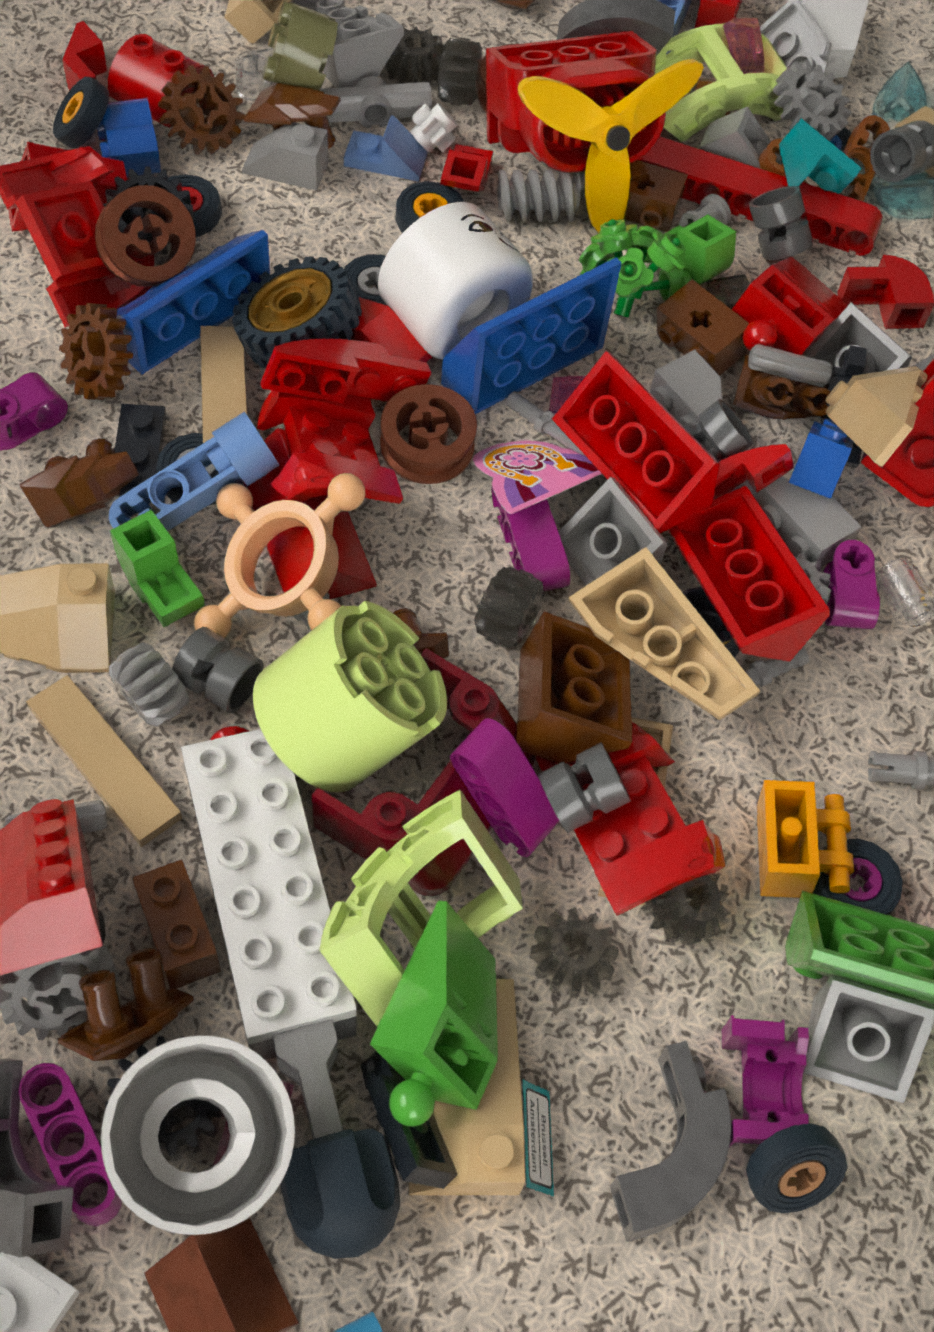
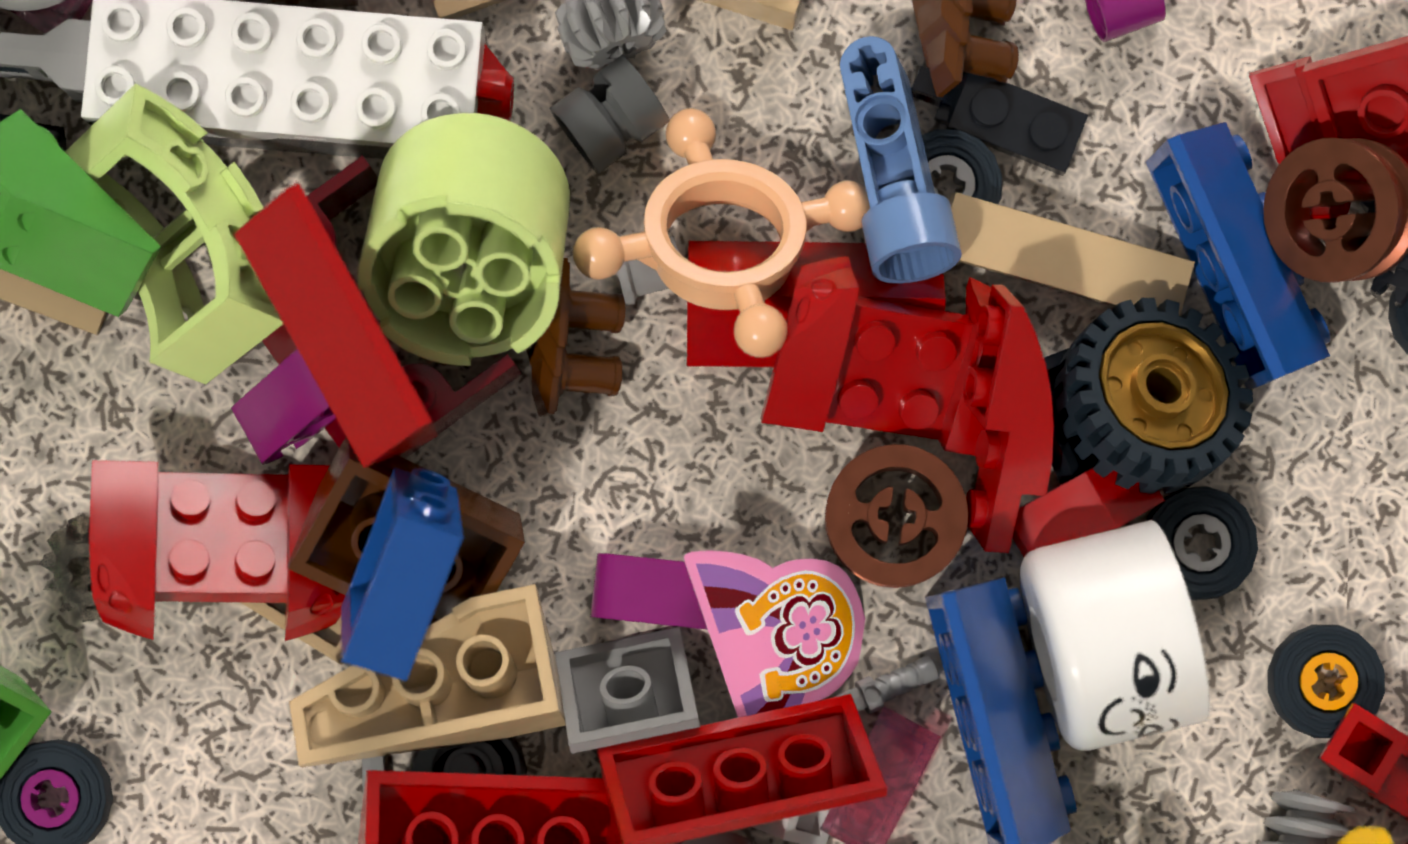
camera: 115 degrees right, 25 degrees up
(95, 351) = (1167, 93): reddish brown gear -> none
(153, 568) = (785, 80): bright green brick -> none
(450, 727) = (334, 329): none -> red slope
(509, 607) = (568, 512): clear smoke gear -> none
(566, 792) = (258, 489): dark grey wheel -> none
(591, 963) = (97, 385): clear smoke gear -> none
(620, 683) = (401, 573): none -> blue window
(789, 840) = (121, 728): light orange brick -> none

